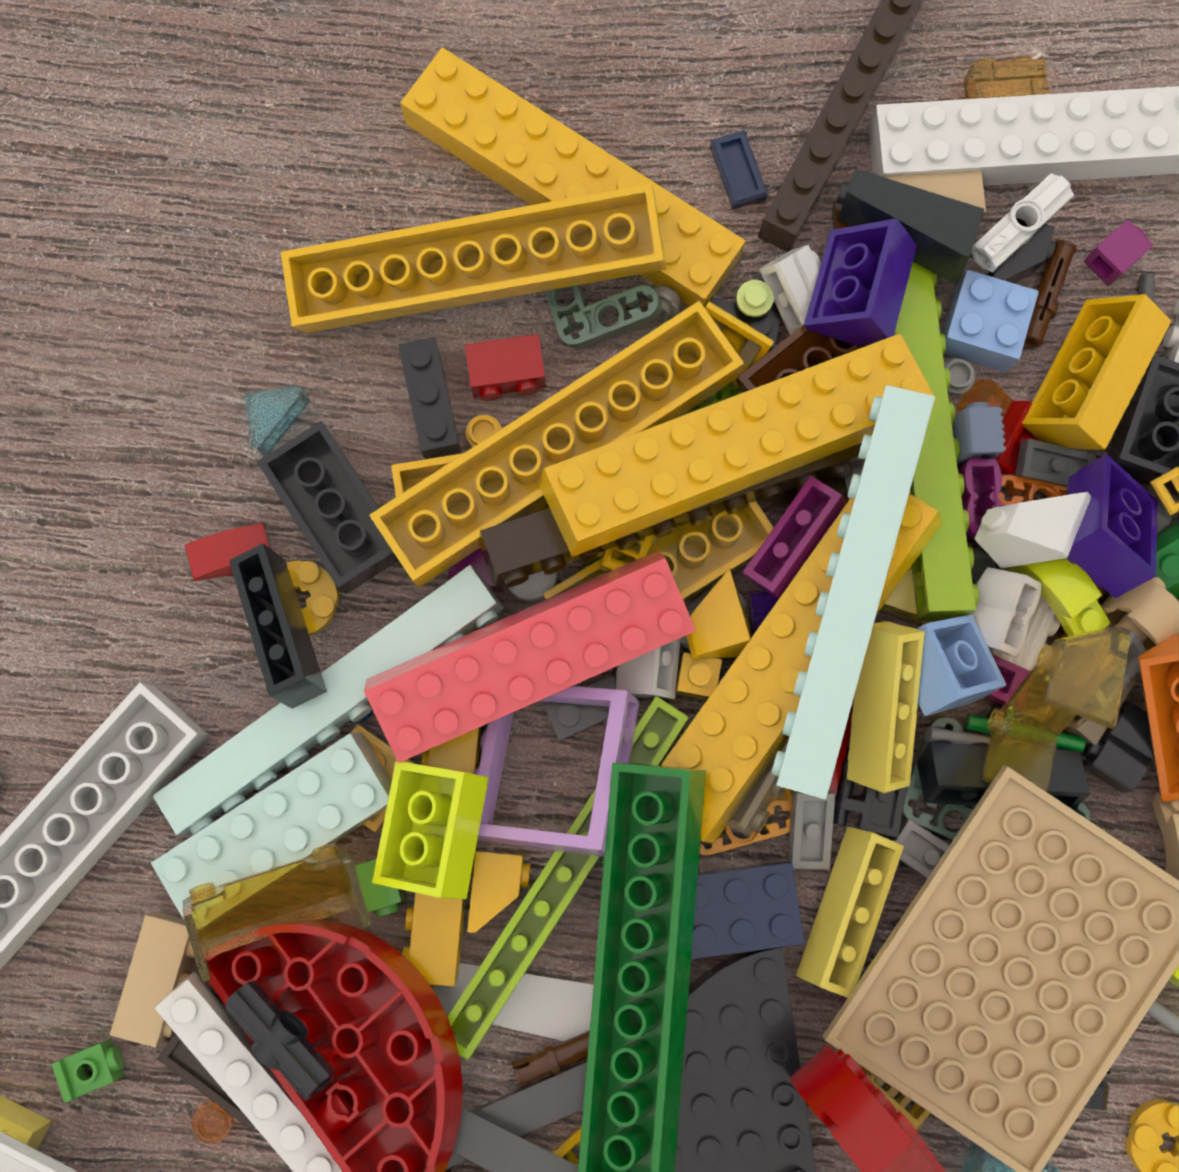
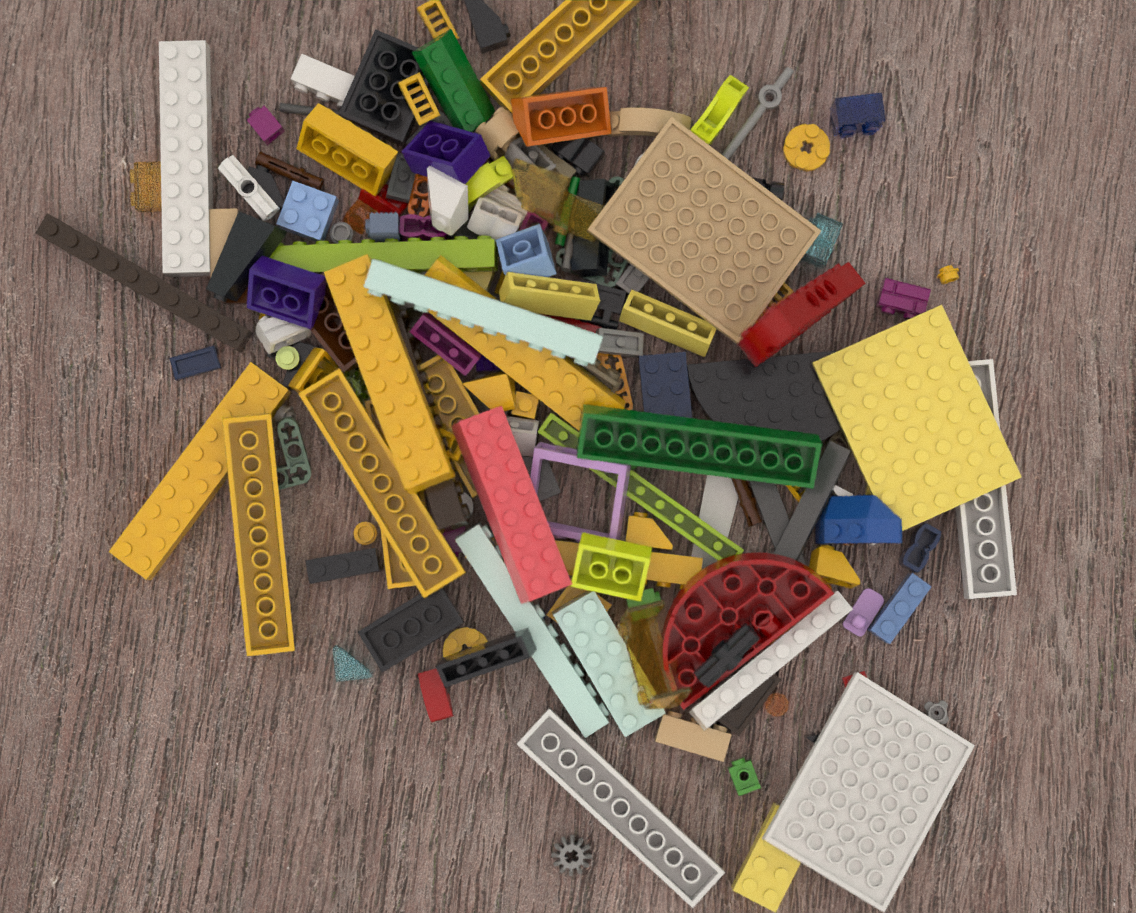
camera: 85 degrees left, 5 degrees up
(505, 367) = (323, 517): red brick -> none

